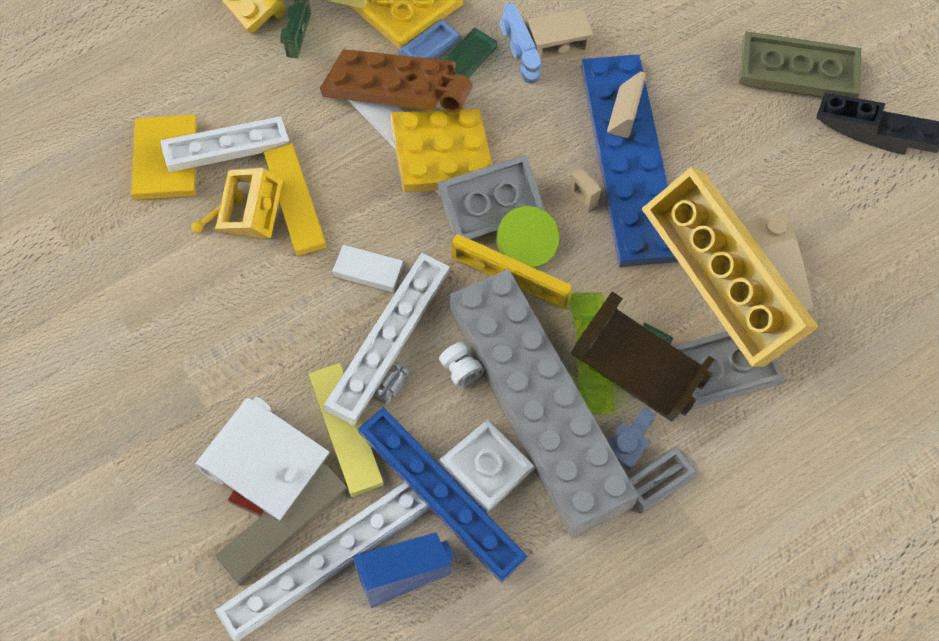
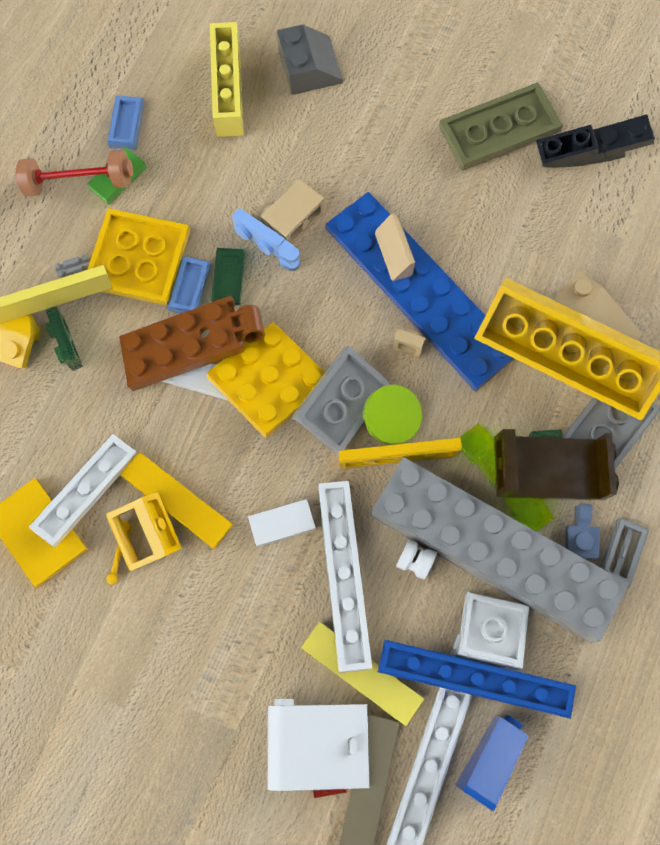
camera: 30 degrees left, 10 degrees up
(392, 383) = (372, 609): light grey piece -> none

